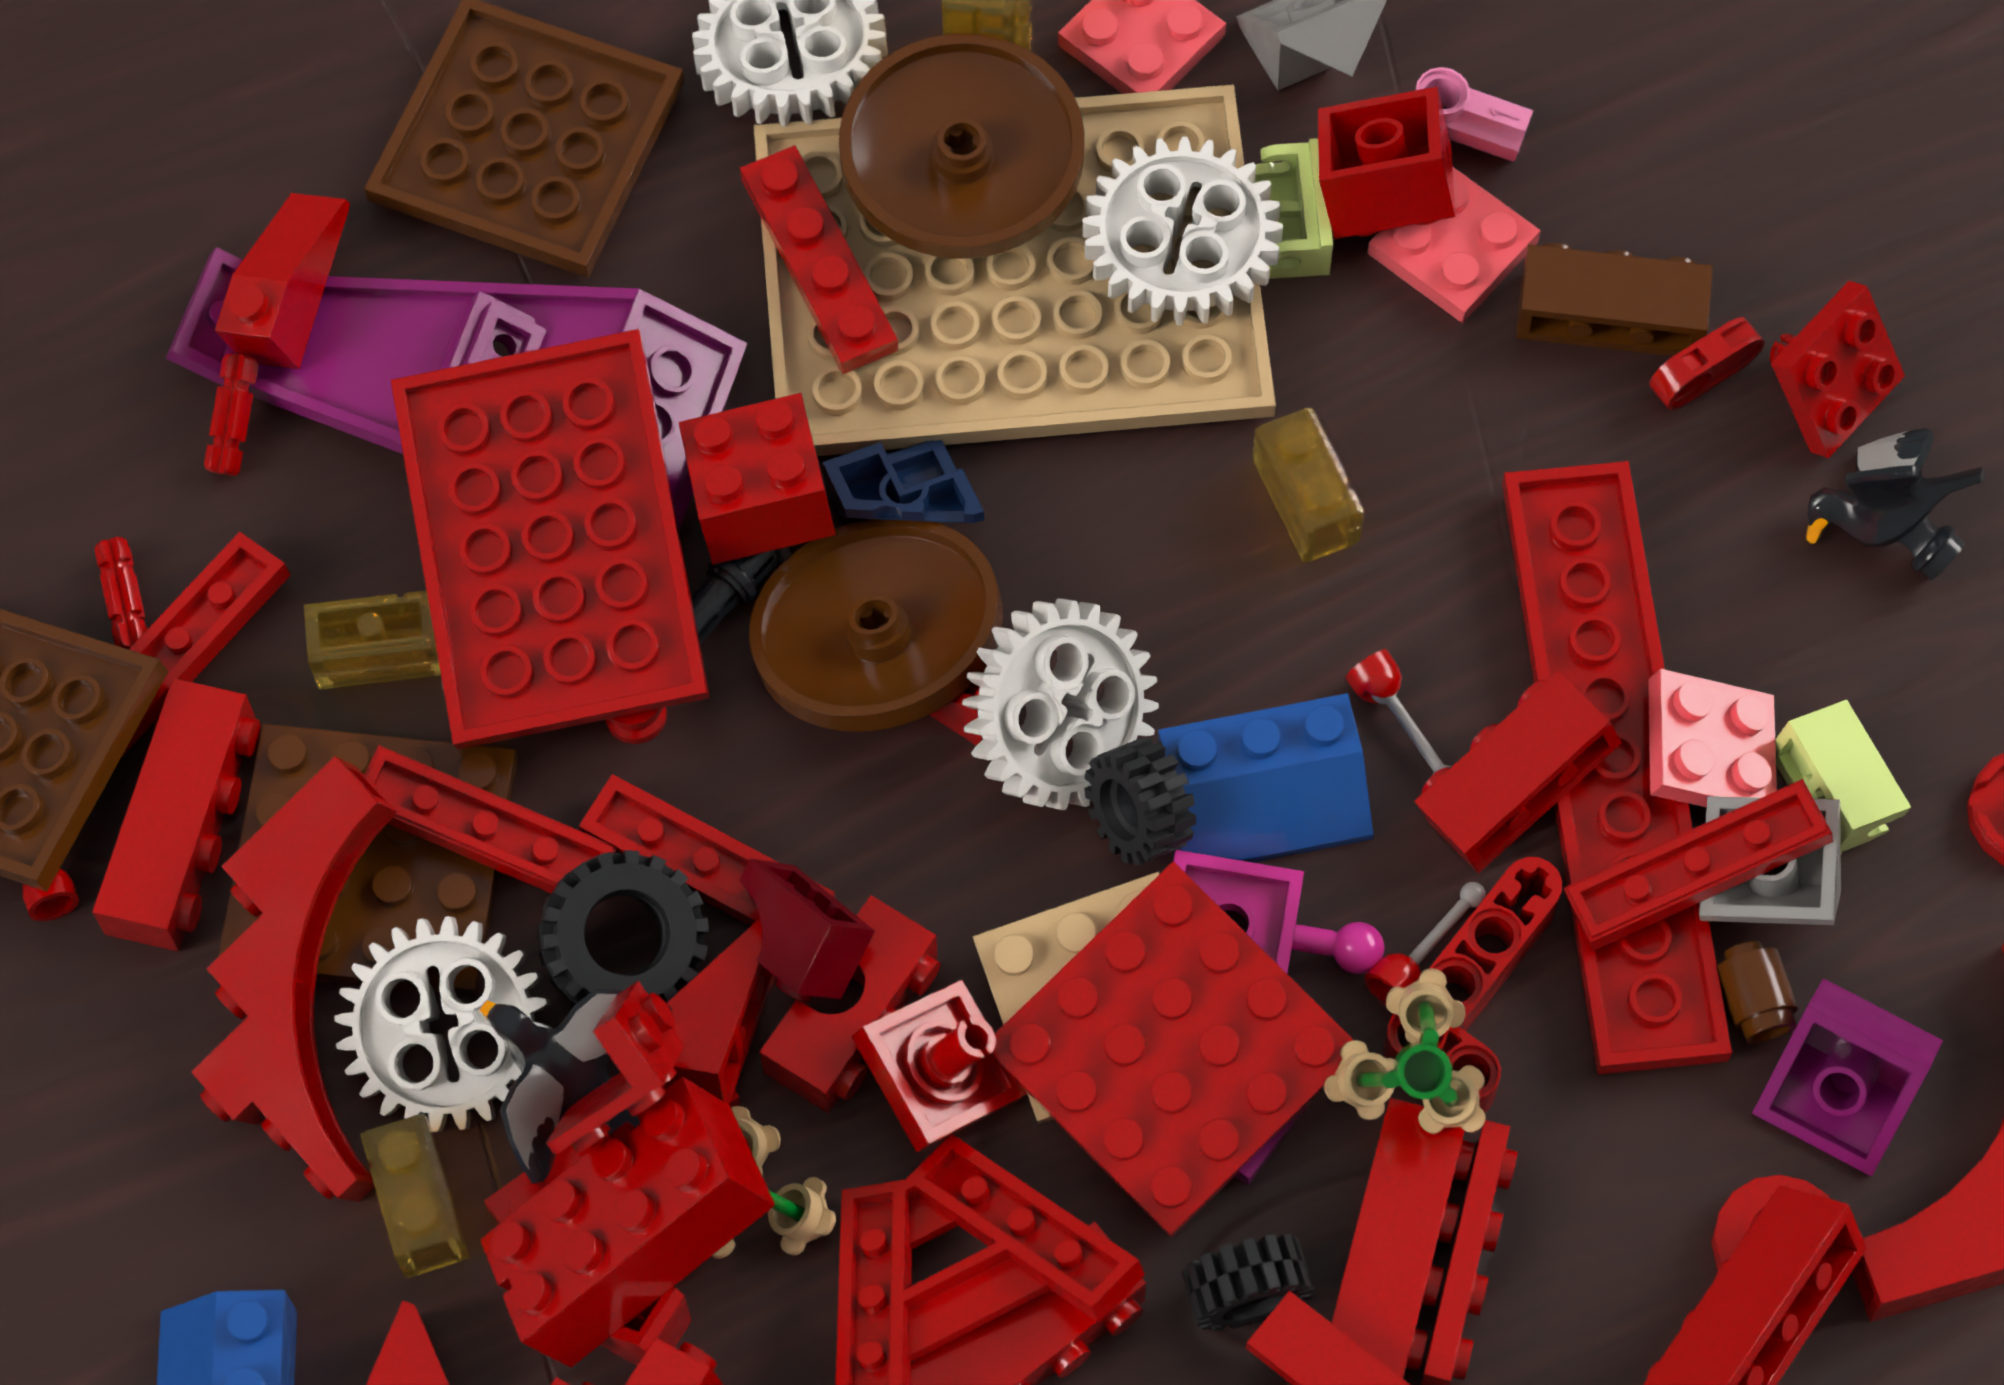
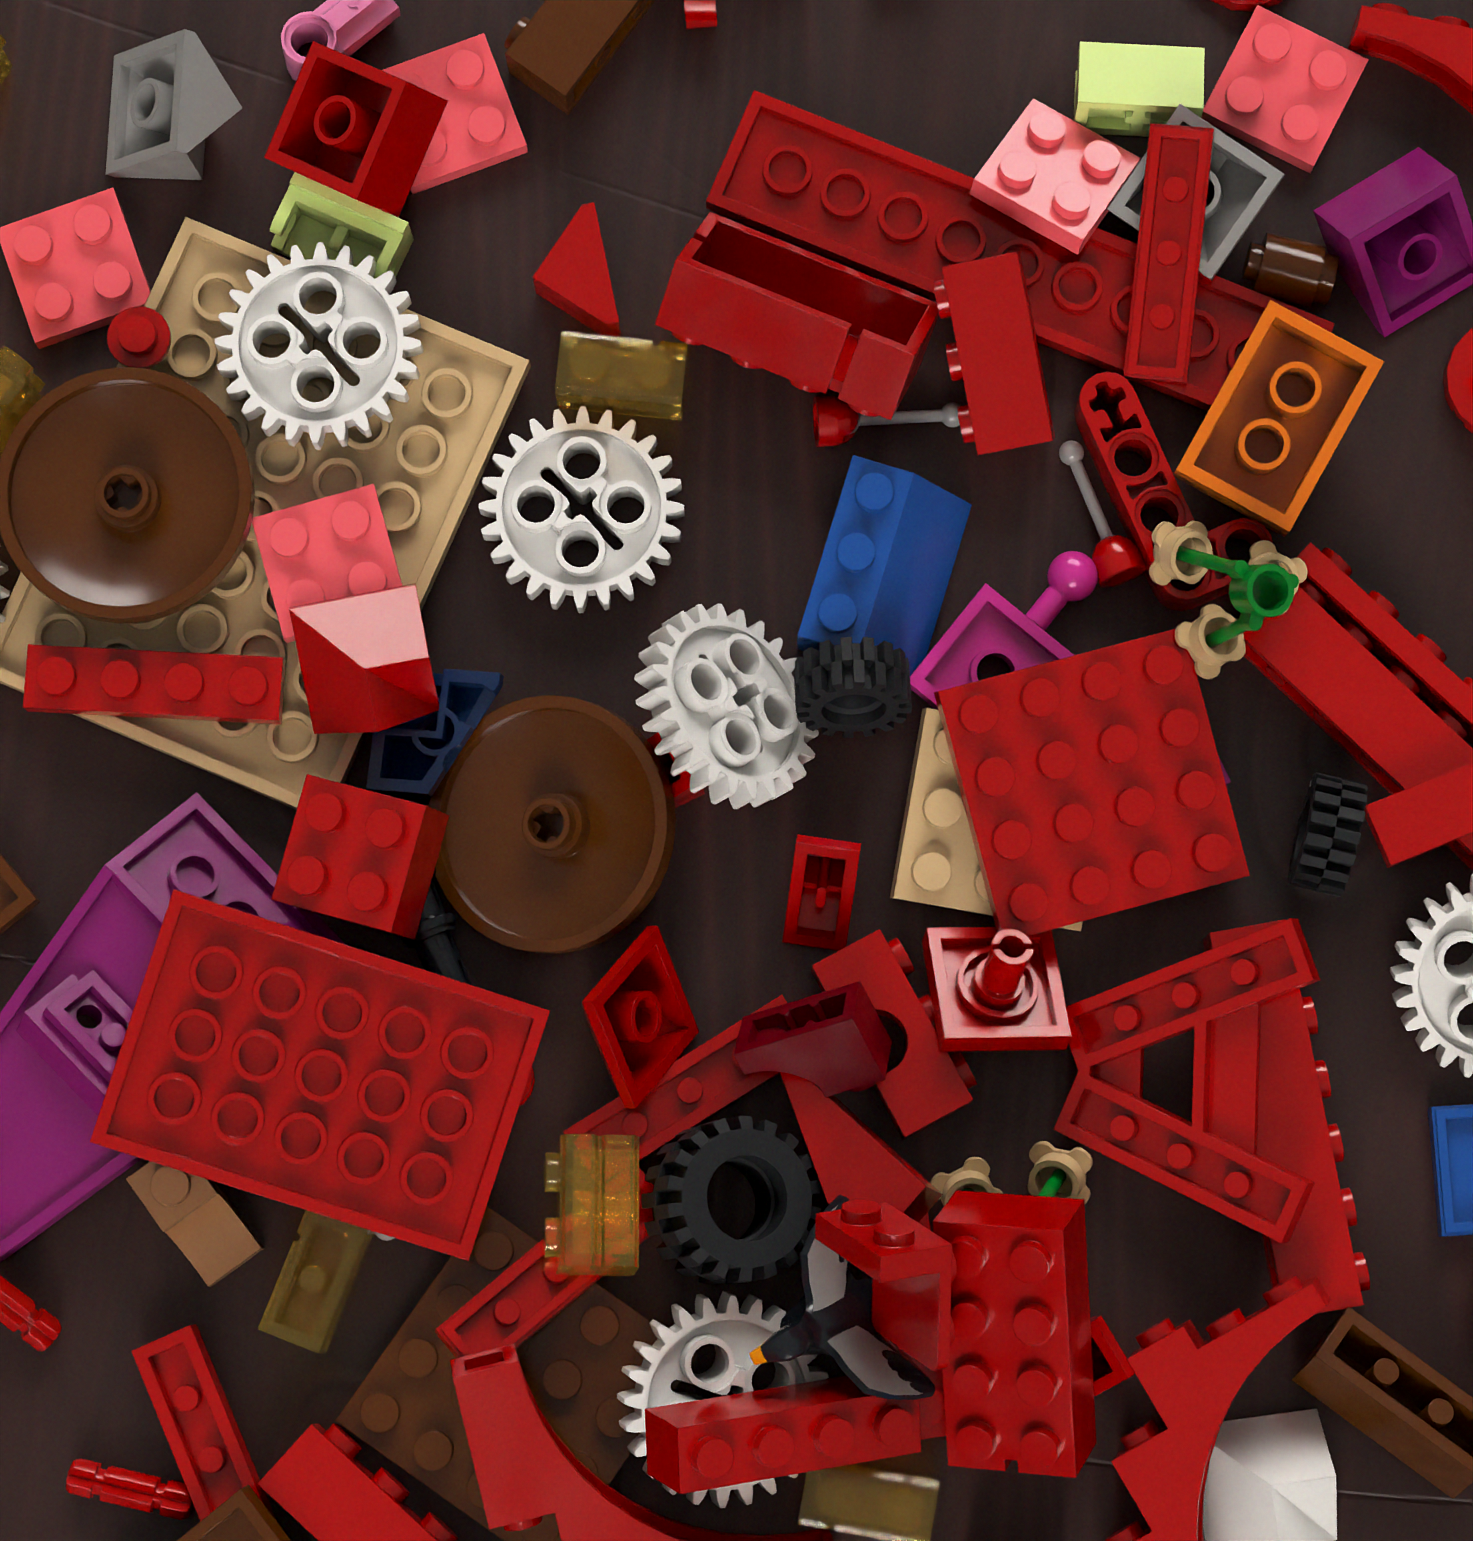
camera: 60 degrees left, 15 degrees up
(379, 527) = (196, 1219): none -> medium nougat arch
(430, 1068) = (775, 1434): none -> red brick
(555, 818) = (594, 1205): none -> clear yellow brick
(744, 773) = (640, 1017): none -> red slope
(933, 401) = (365, 661): none -> red slope
(948, 877) = (821, 892): none -> red slope
(1002, 338) = (325, 551): none -> coral plate
(1106, 97) = (139, 337): none -> red plate
(1225, 528) = (540, 546): none -> white gear
(1381, 407) = (578, 275): none -> red slope
(1445, 587) = (797, 315): none -> red piece
(1601, 1030) = (1278, 418): none -> orange brick
(1925, 906) = (1283, 89): none -> coral plate

